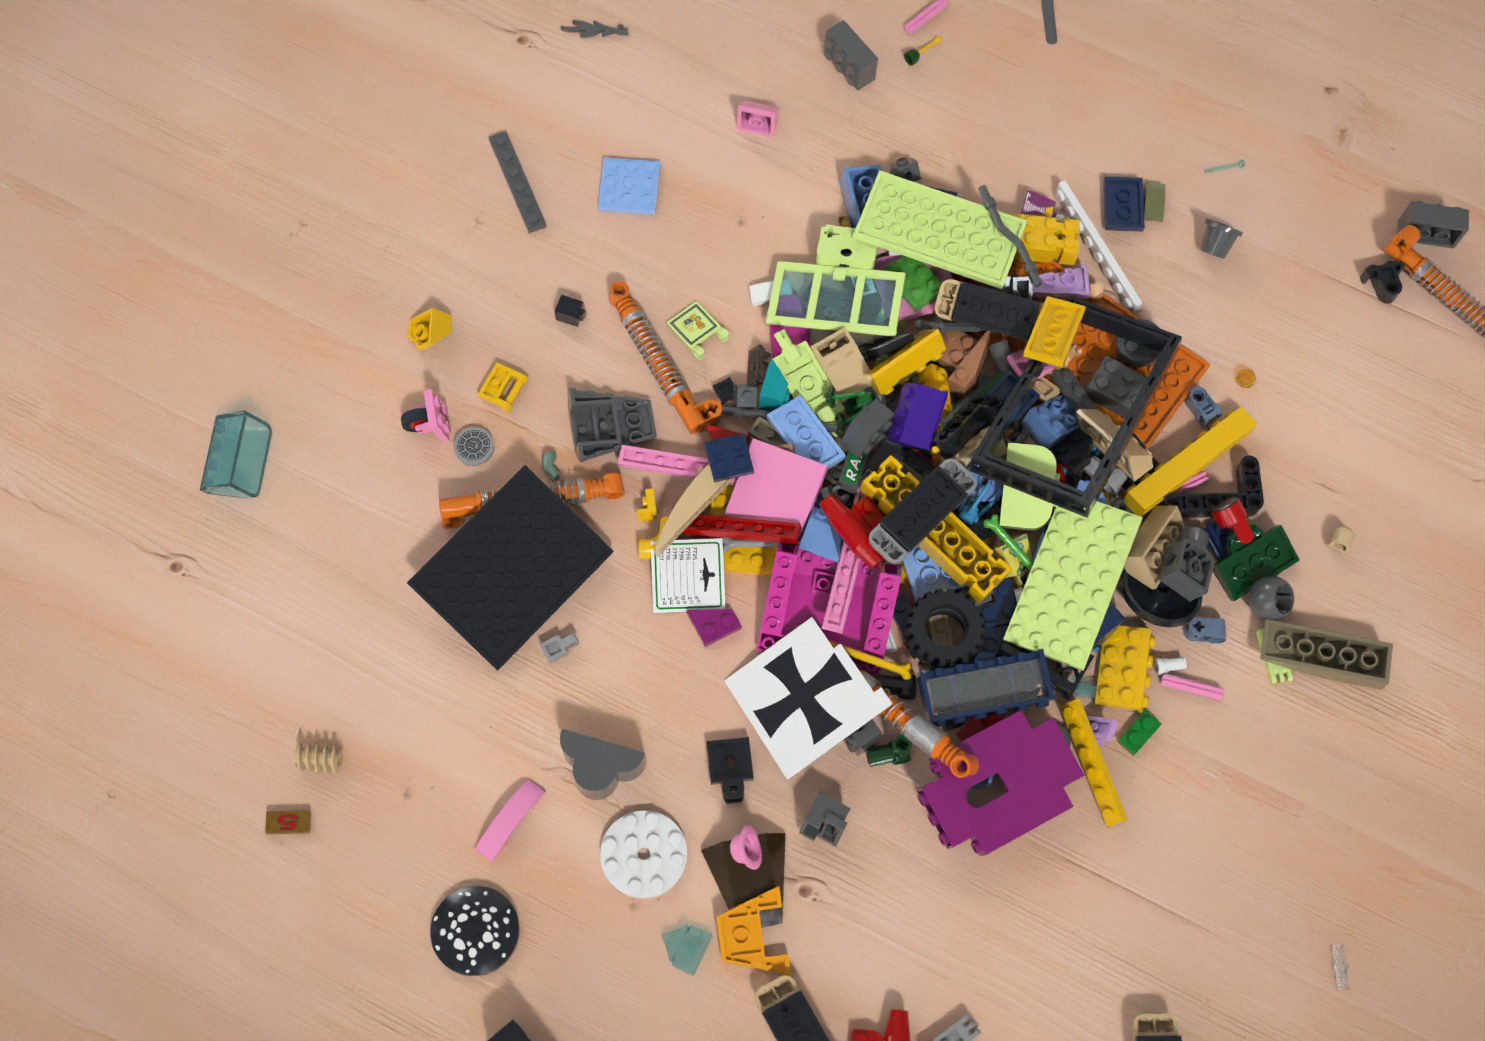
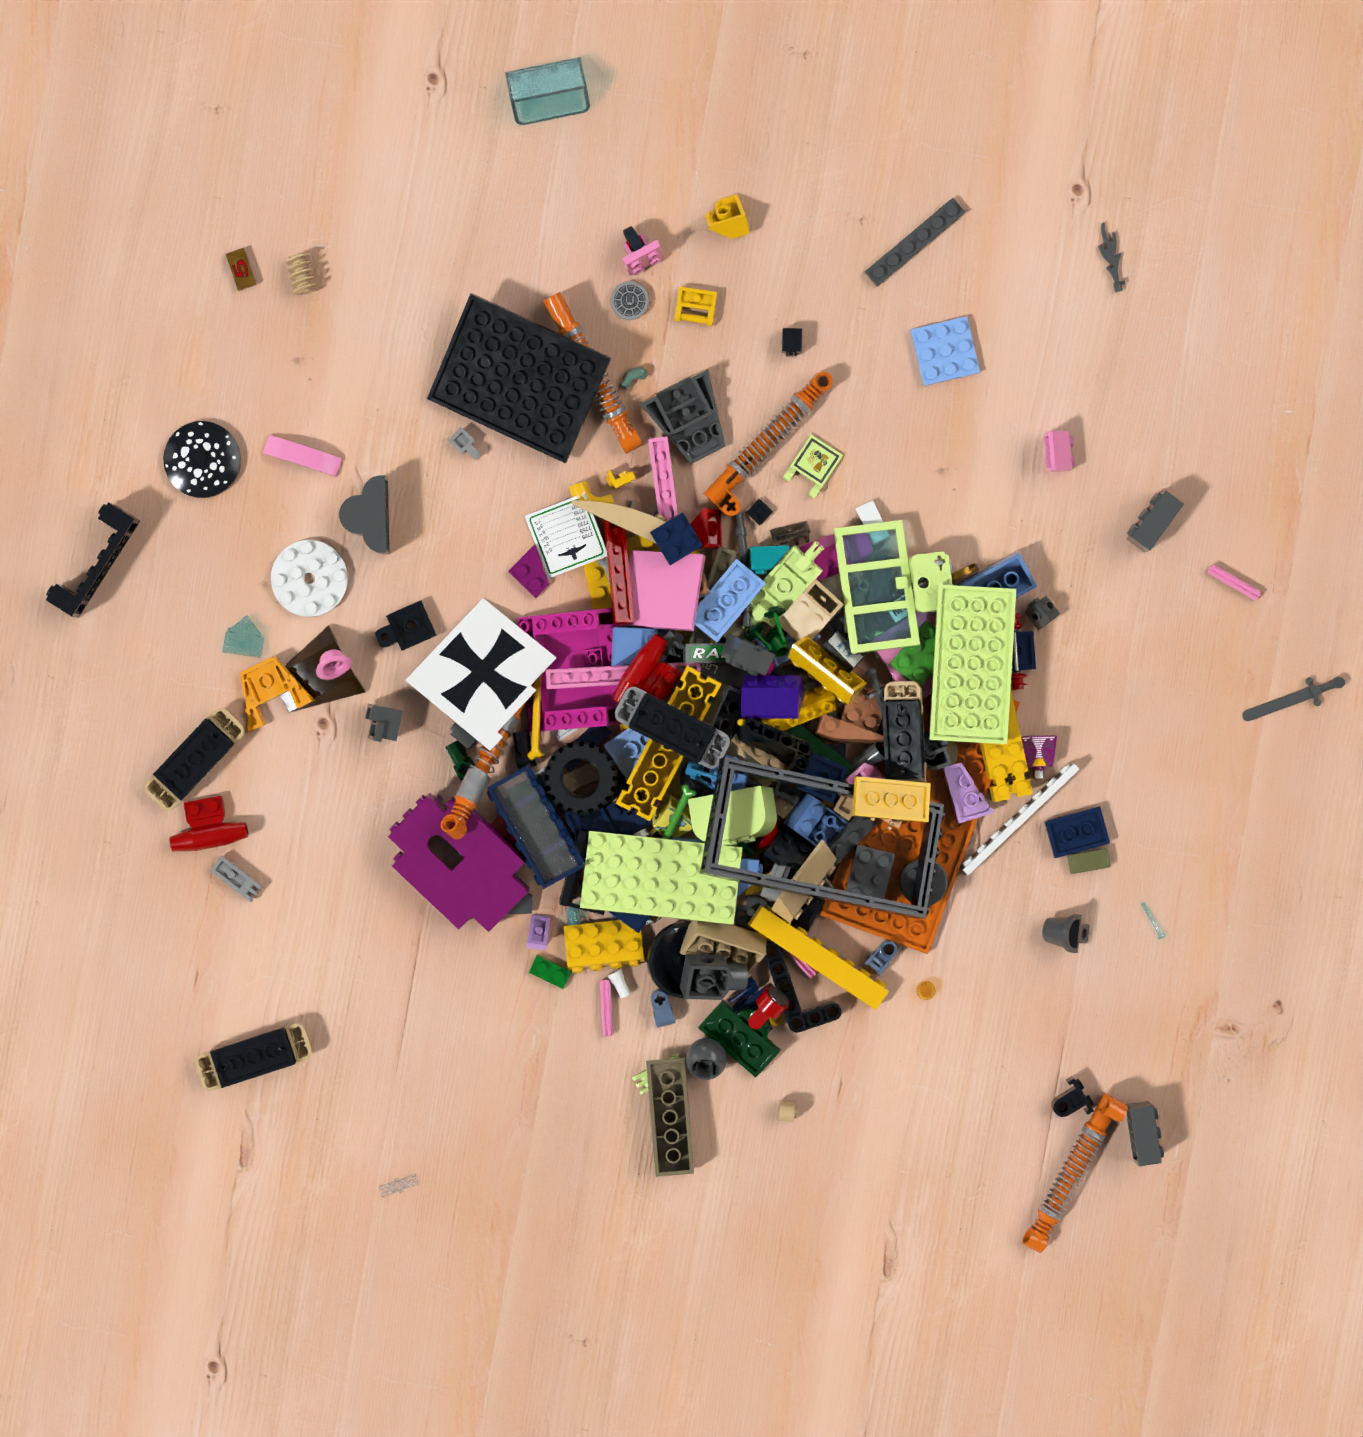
camera: 80 degrees right, 20 degrees up
(744, 395) = (754, 531): dark grey brick -> none
(912, 56) = (1180, 583): dark green hinge -> none
(944, 422) = (796, 733): dark grey piece -> none
(1030, 267) = (1010, 704): dark grey bar -> none
(1093, 763) = (507, 937): yellow plate -> none
(1096, 291) = (966, 828): light nougat hinge -> none

